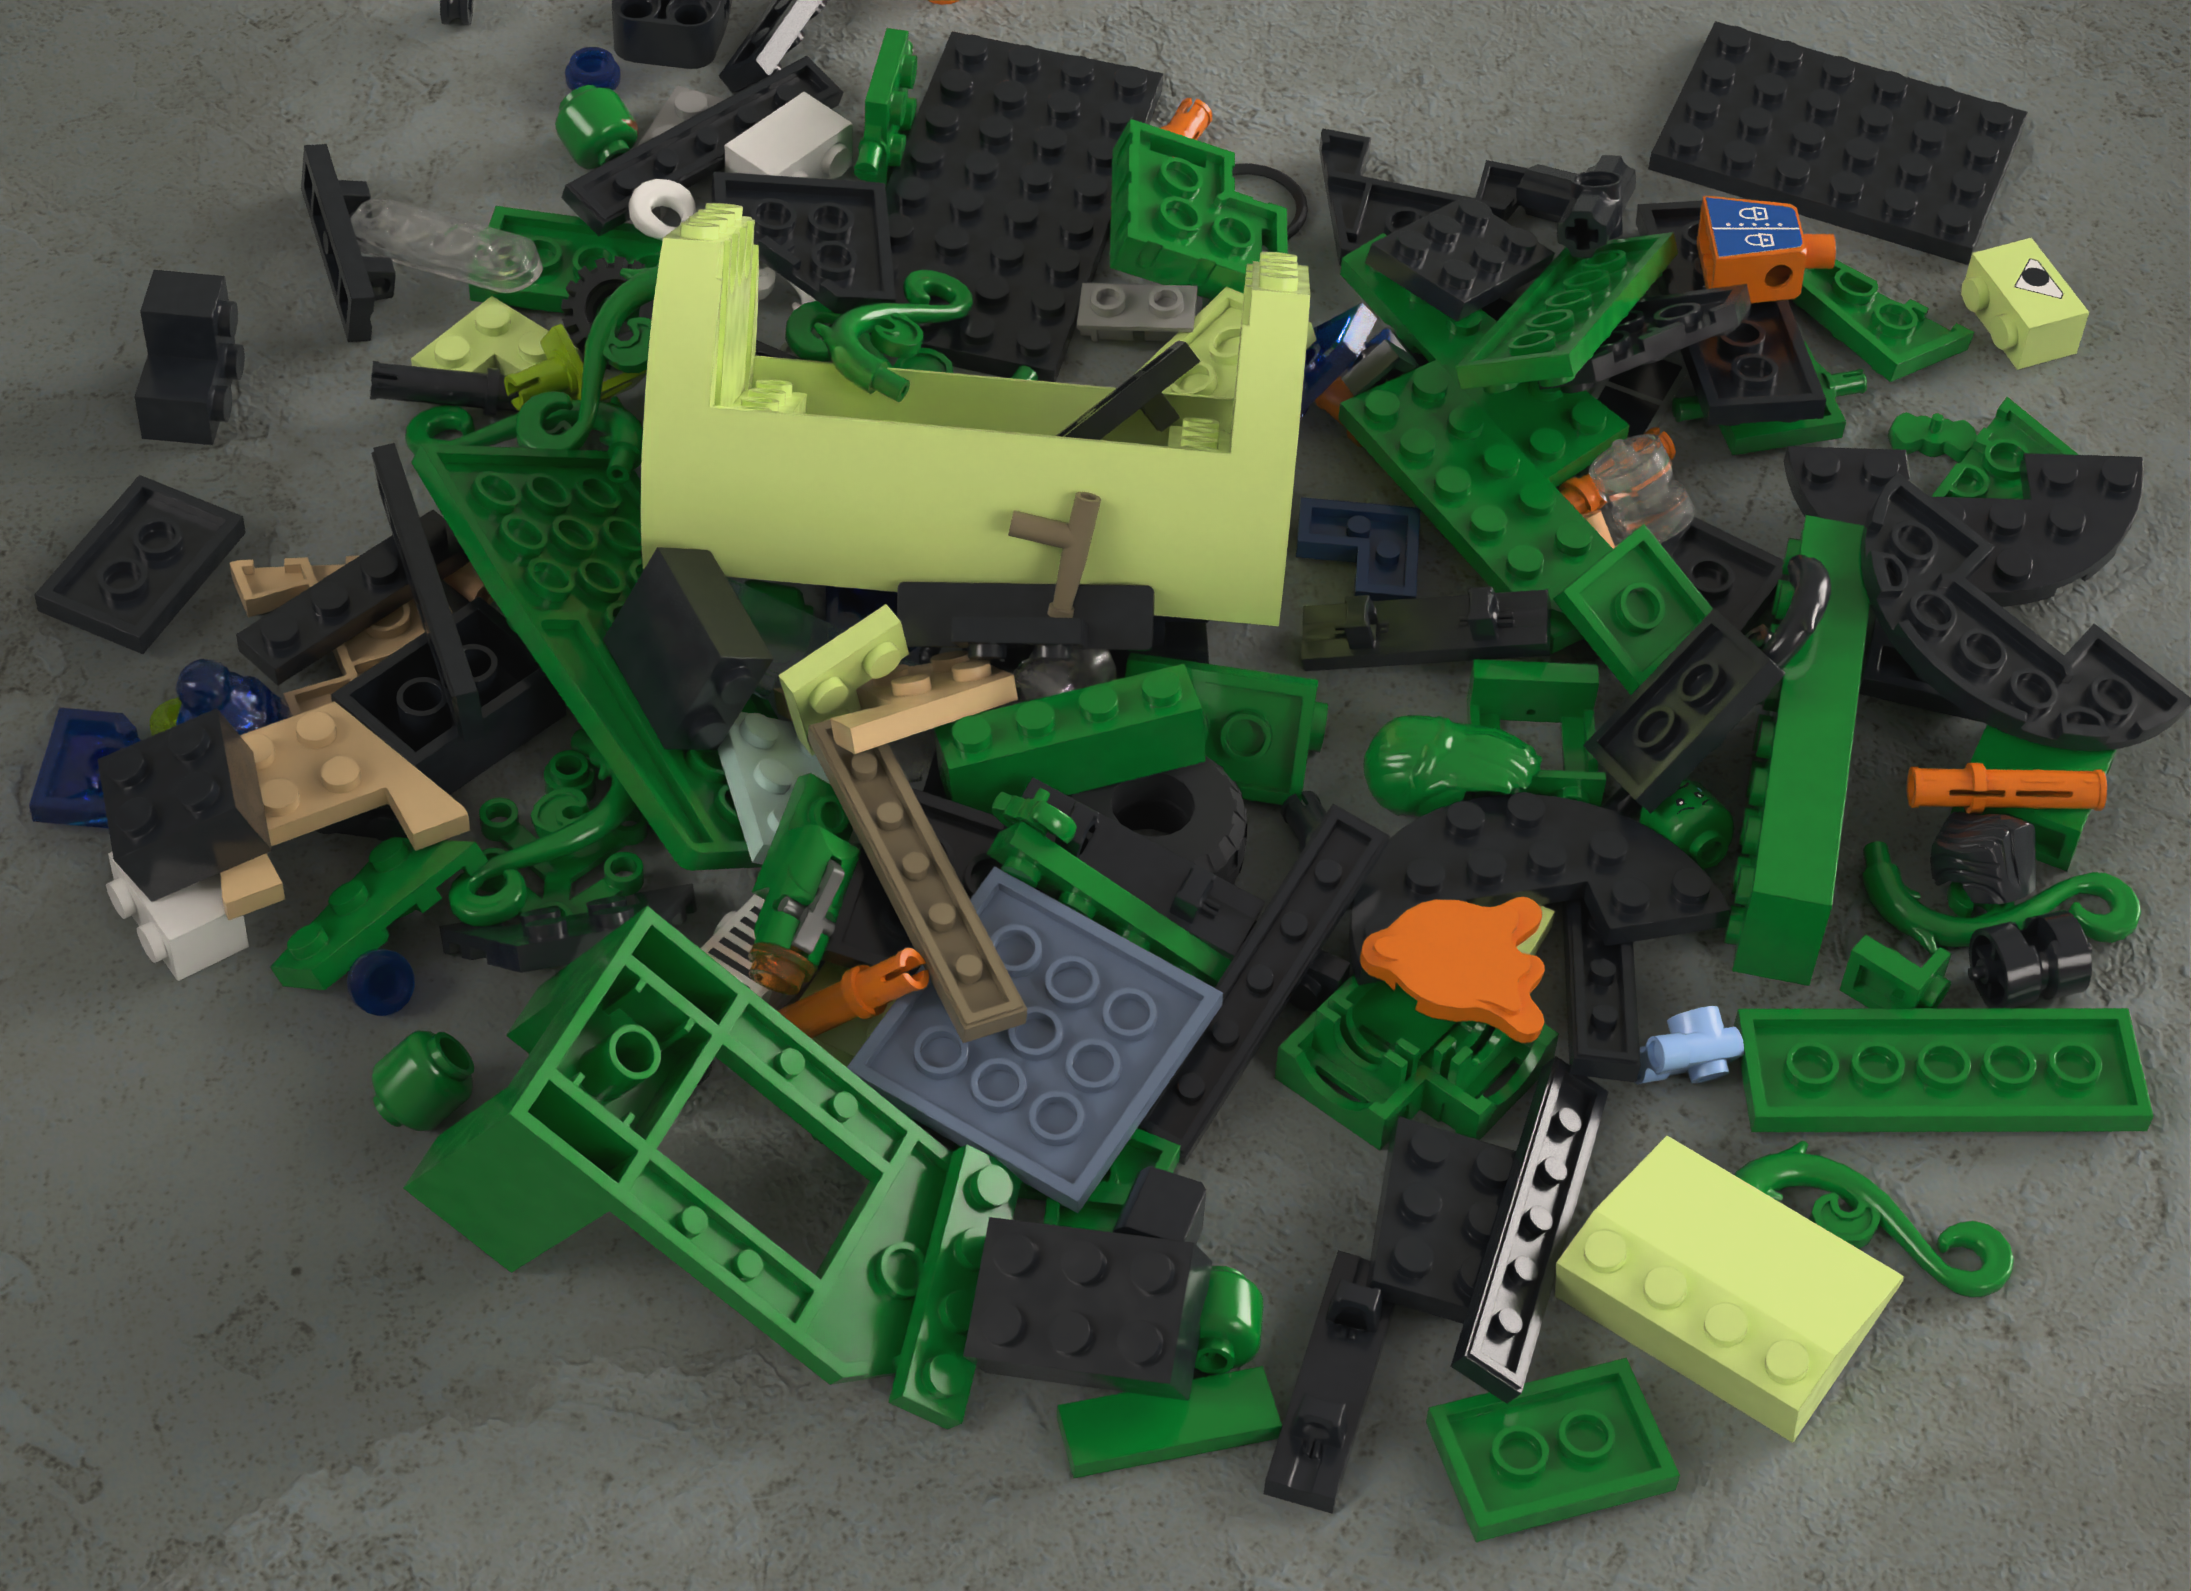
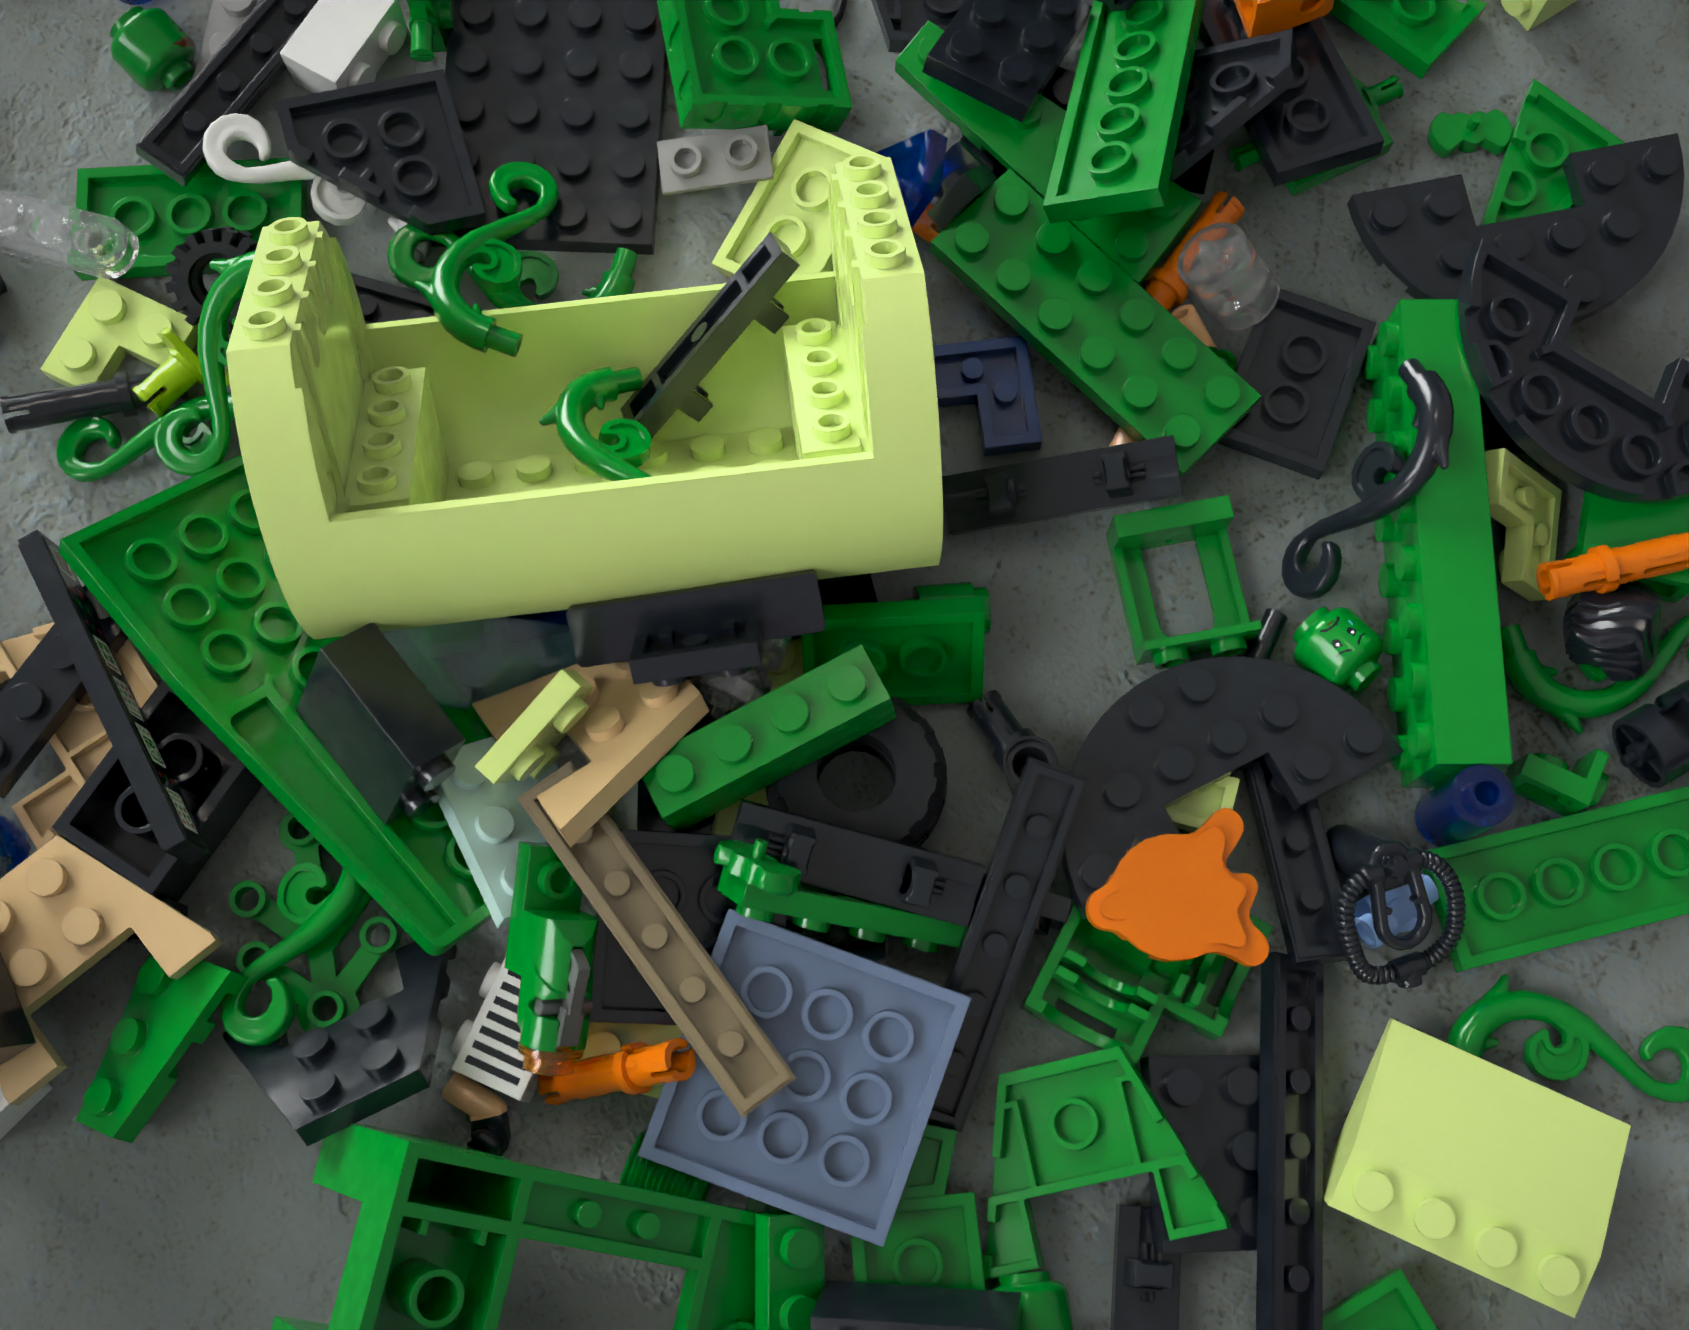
camera: 10 degrees left, 25 degrees up
(381, 982) = (183, 1117): clear blue plate -> none
(422, 1080) = (247, 1233): green head -> none
(1071, 537) = (729, 562): dark tan piece -> none
(1163, 1207) = (960, 1247): black piece -> none
(1313, 1163) = (1077, 1128): none -> green wing
(1432, 762) = (1114, 642): green hair -> none
(1634, 607) = (1256, 429): green plate -> none
(1674, 989) = (1381, 867): none -> black piece
(1683, 710) = (1329, 552): black plate -> none
(1785, 957) = (1465, 805): none -> clear blue brick
(1911, 738) = (1530, 512): none -> yellowish green plate

